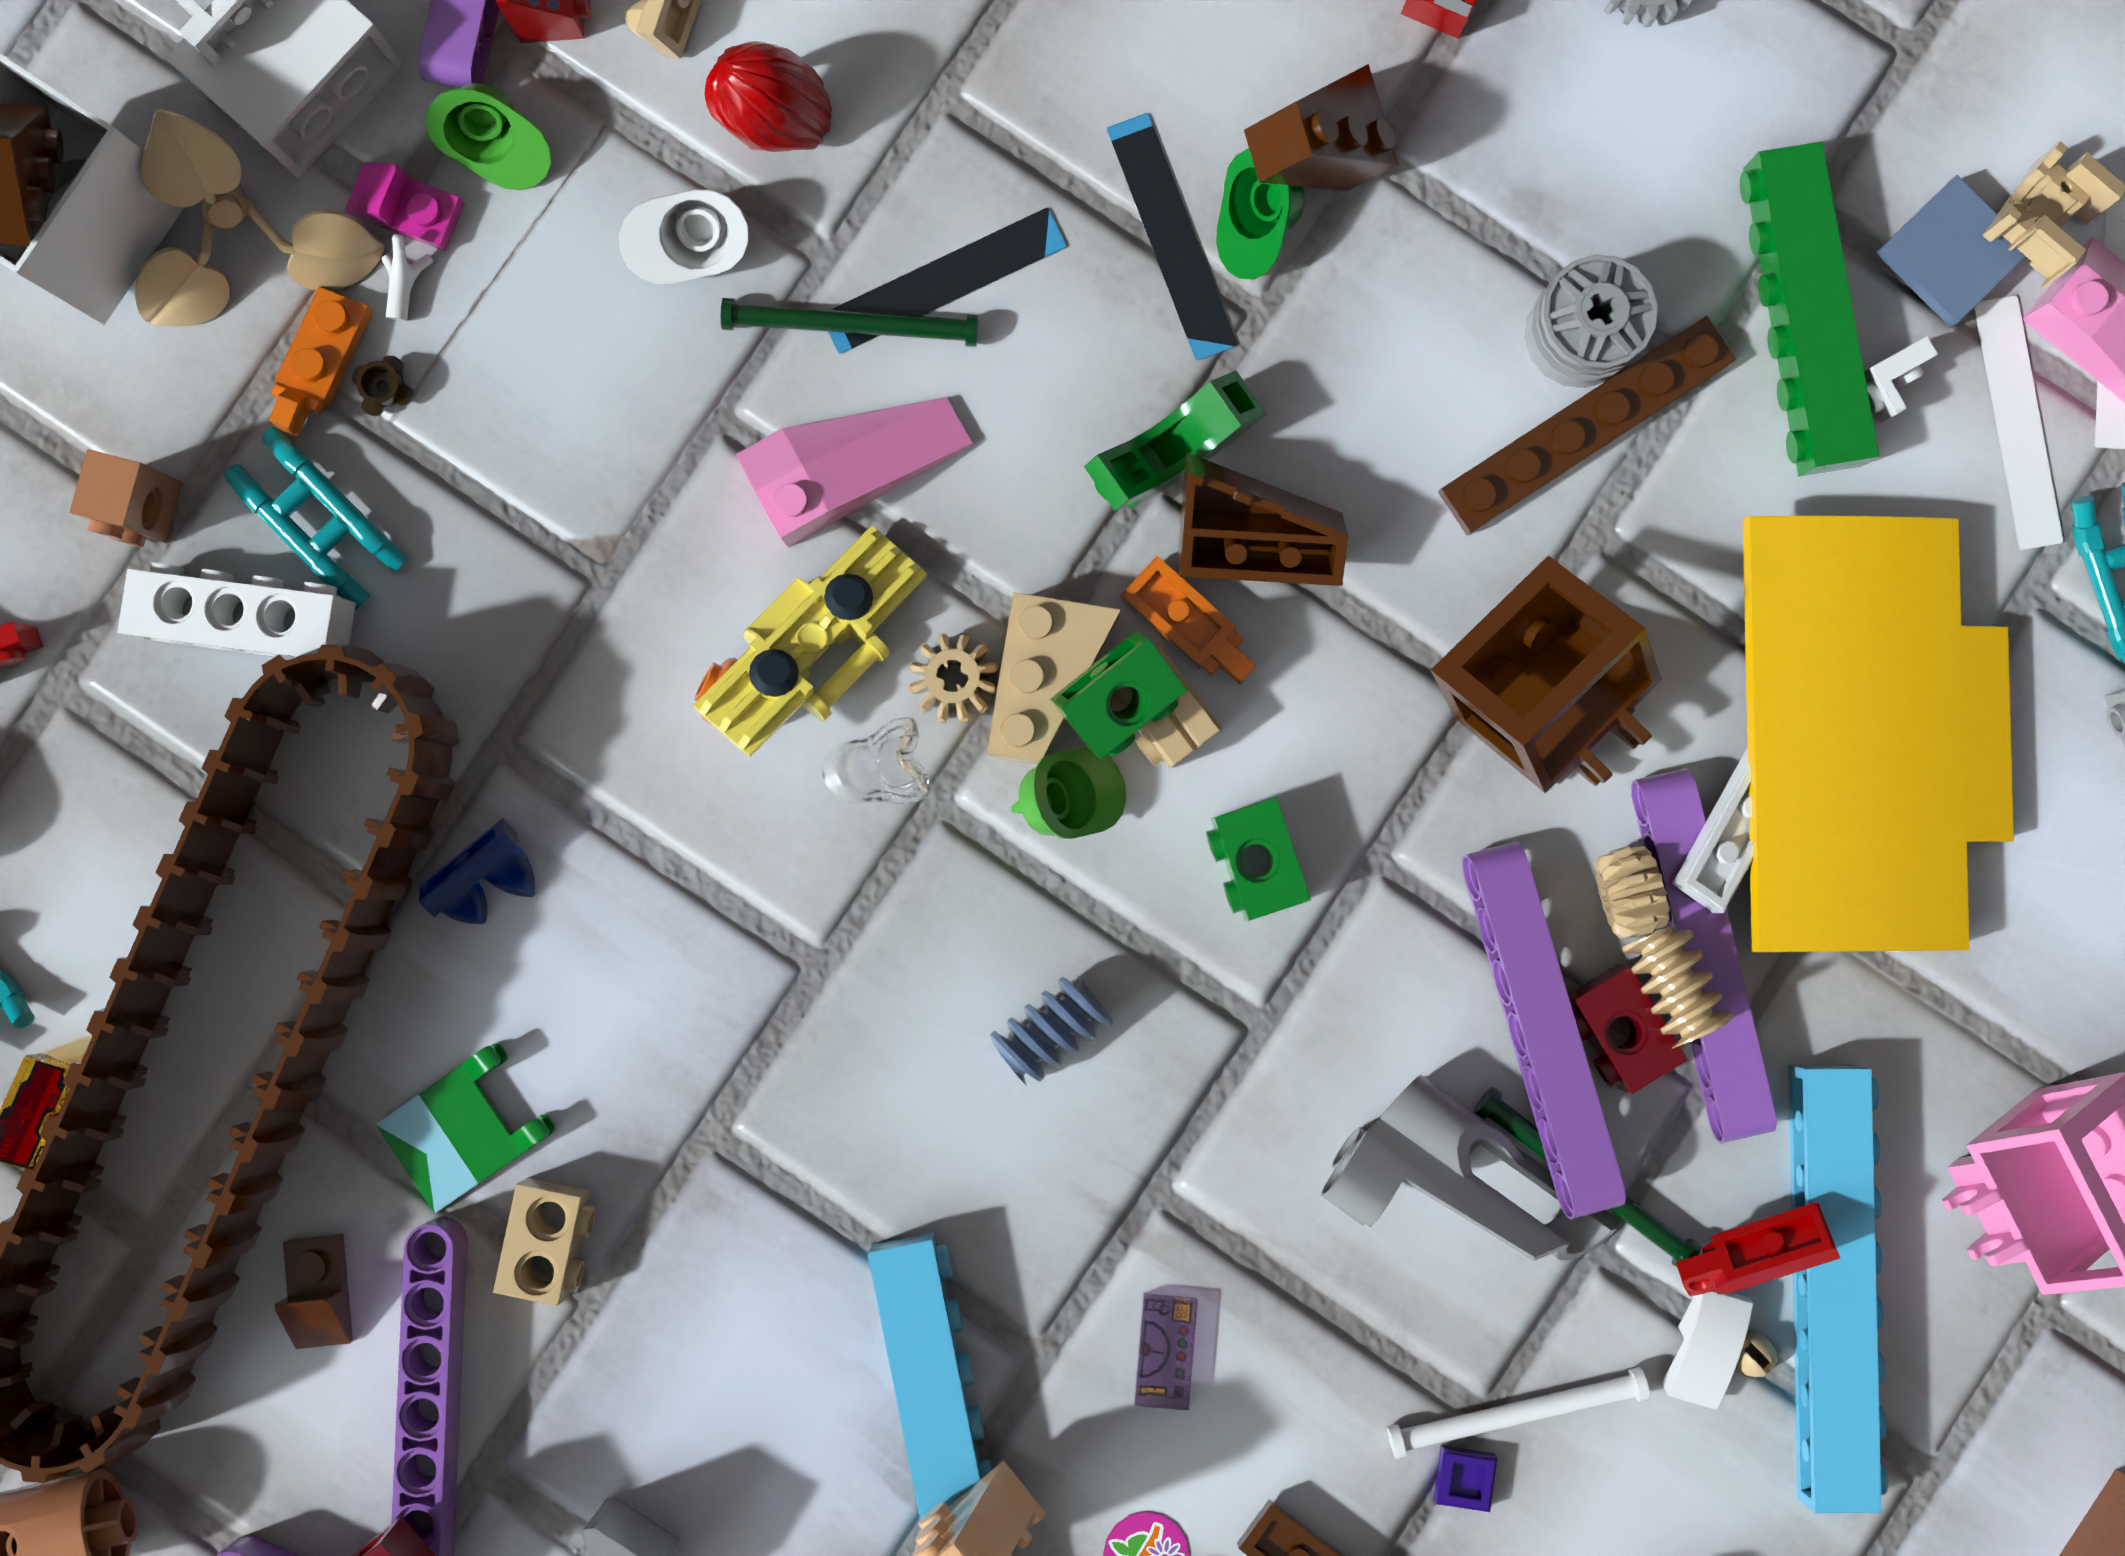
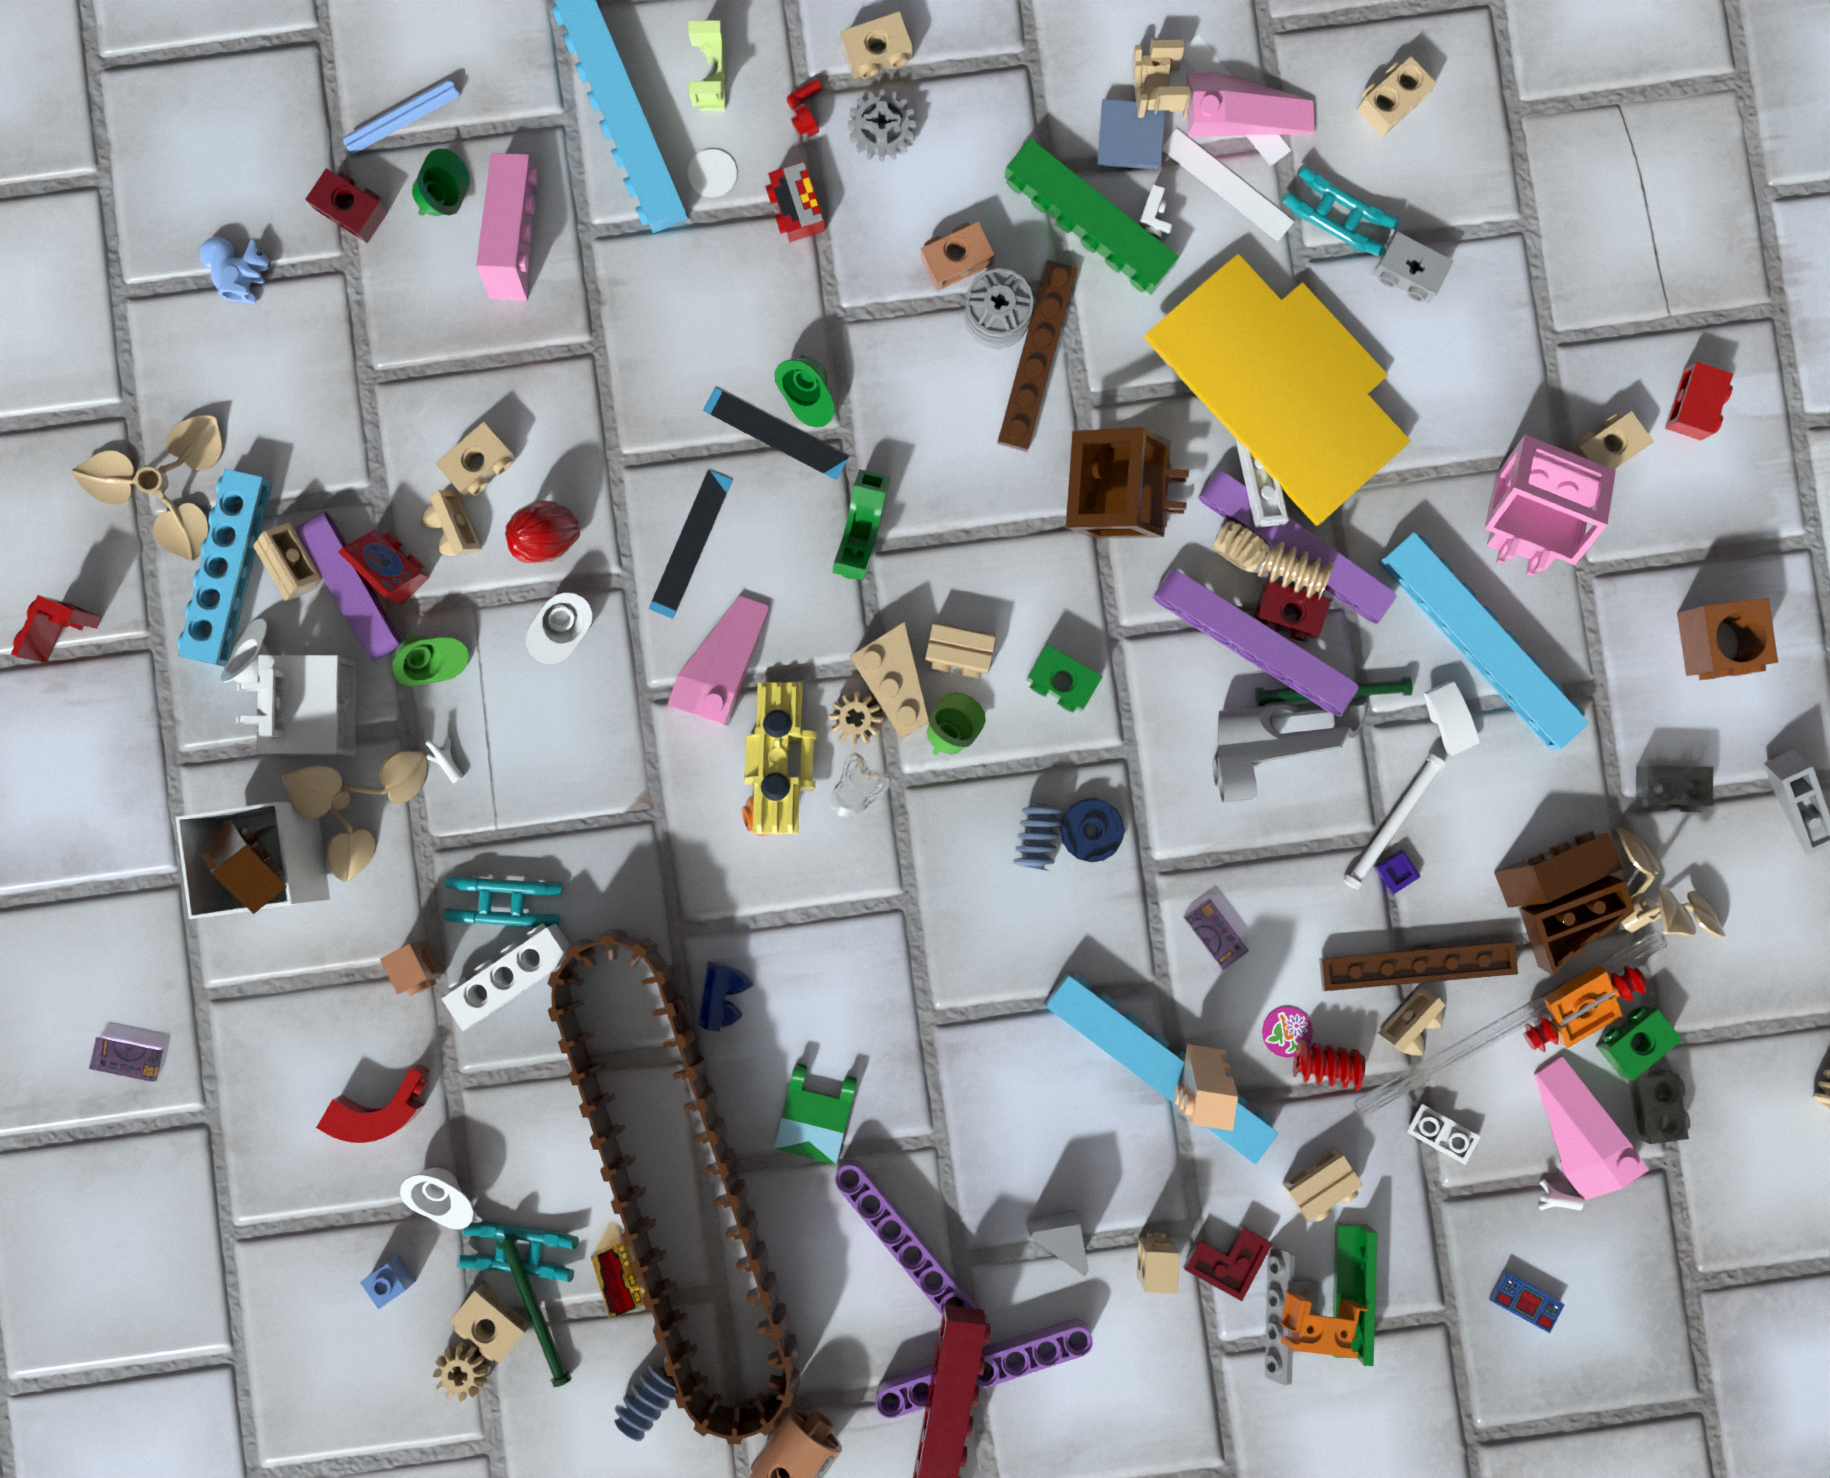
camera: 40 degrees left, 0 degrees up
(317, 358) = (439, 828): orange hinge -> none
(317, 1292) = (815, 1246): reddish brown slope -> none
(371, 374) = (477, 806): dark brown plate -> none
(404, 205) = (416, 725): dark pink slope -> none
(531, 1236) = (890, 1134): tan brick -> none
(849, 322) = (665, 600): dark green bar -> none
(1088, 697) = (925, 673): green brick -> none
(1131, 1110) = (1109, 830): none -> dark blue plate
(1188, 620) = (937, 600): orange hinge -> none
(1255, 530) = (932, 533): reddish brown wedge -> none
(1326, 138) = (807, 329): reddish brown wedge -> none
(1569, 222) = (947, 271): none -> nougat brick
(1748, 1365) = (1476, 711): tan hinge -> none
(1760, 1252) = (1436, 656): red hinge -> none

